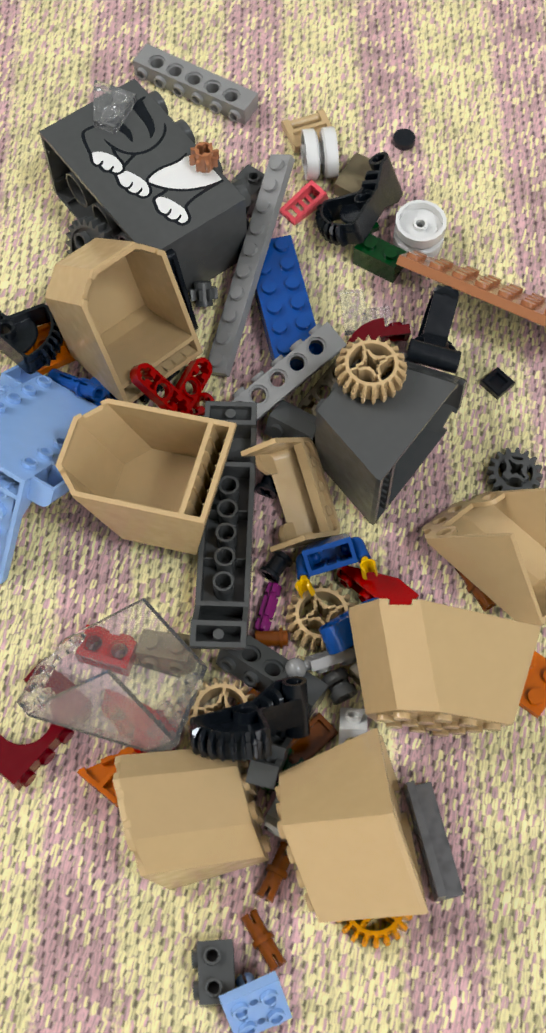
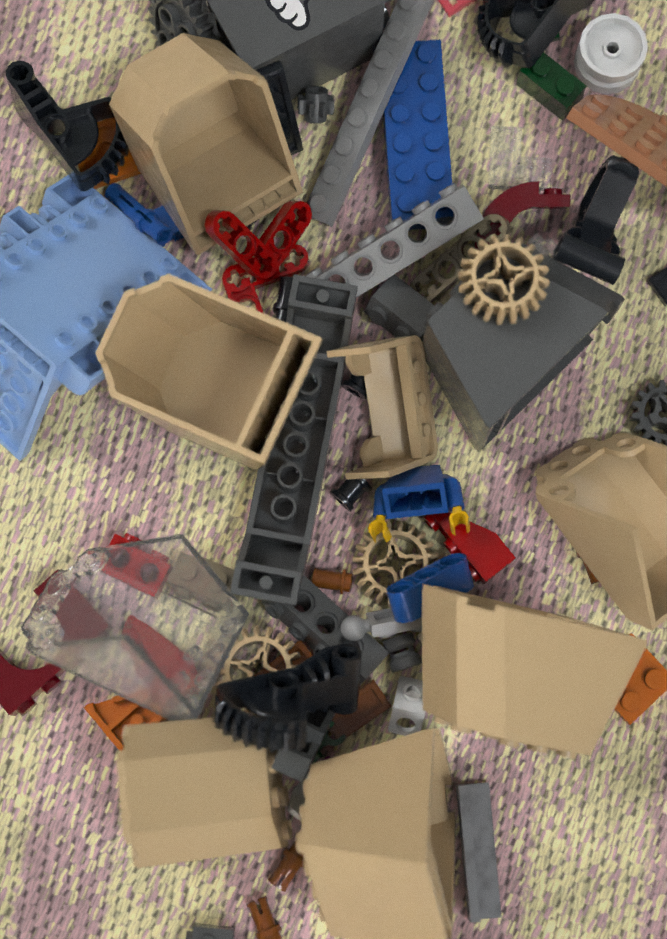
camera: 10 degrees right, 15 degrees up
(268, 607) = (334, 539): magenta axle -> none

